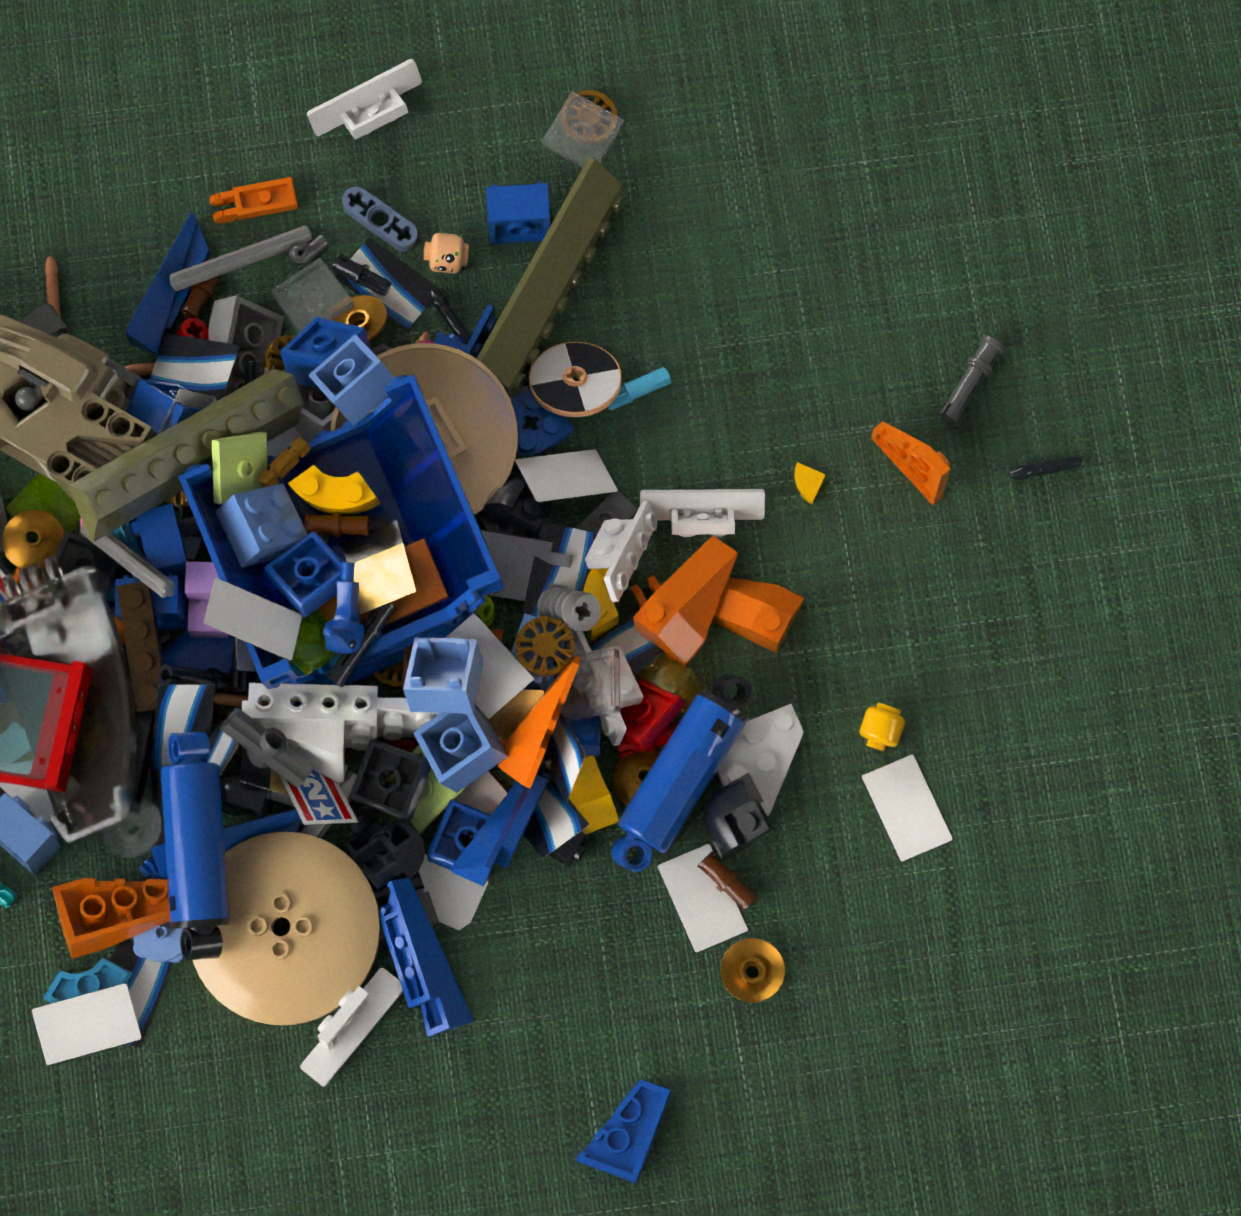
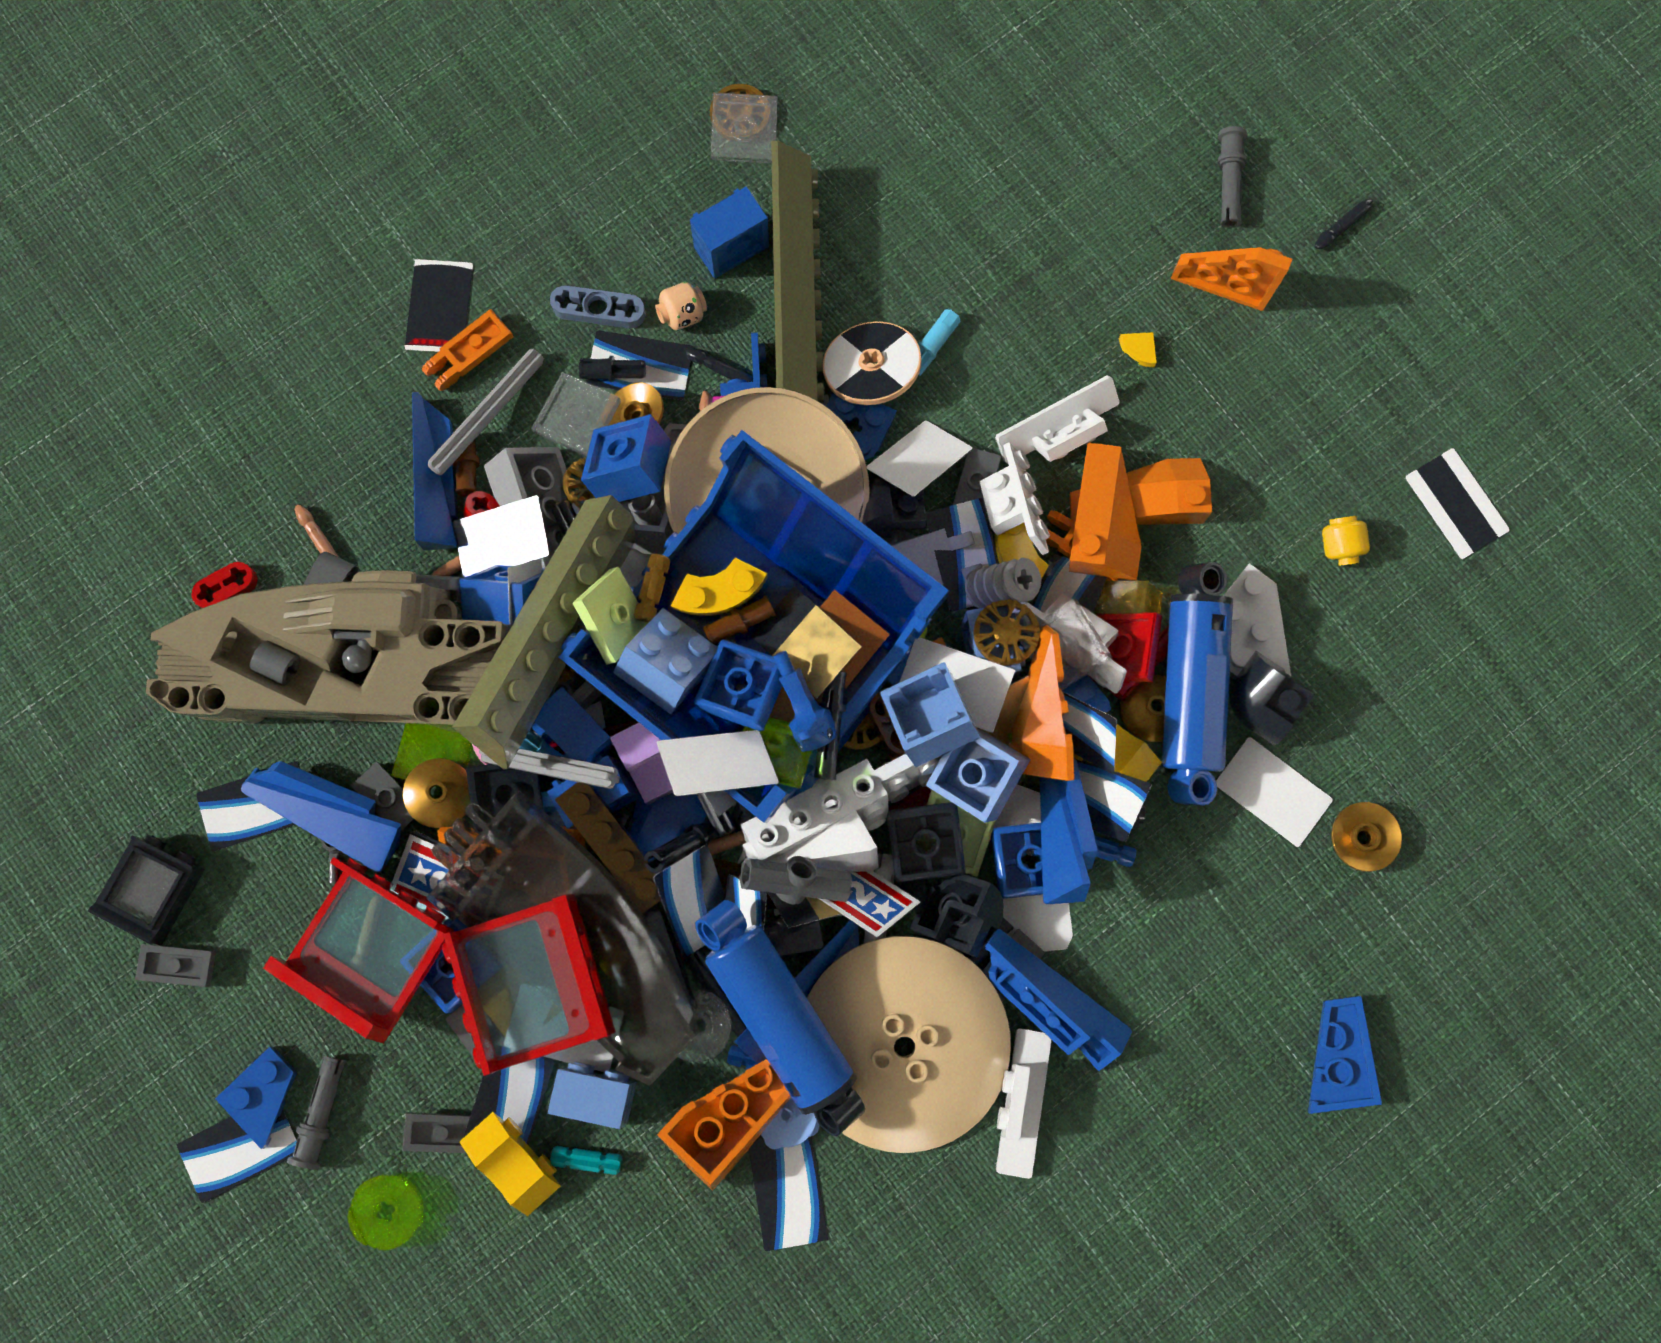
camera: 30 degrees left, 5 degrees up
(86, 1024) = (764, 1248): white sticker -> none
(102, 976) = (756, 1194): dark azure tile -> none
(253, 150) = (437, 303): none -> black sticker
(307, 252) = (545, 374): dark grey arm -> none
(353, 379) = (675, 468): medium blue brick -> none
(367, 104) = (525, 202): white bracket -> none
(536, 867) = (1111, 851): none -> blue axle
(727, 881) = (1291, 763): reddish brown pin -> none
(907, 807) = (1407, 604): white sticker -> none
(1000, 749) = (1457, 503): none -> sticker

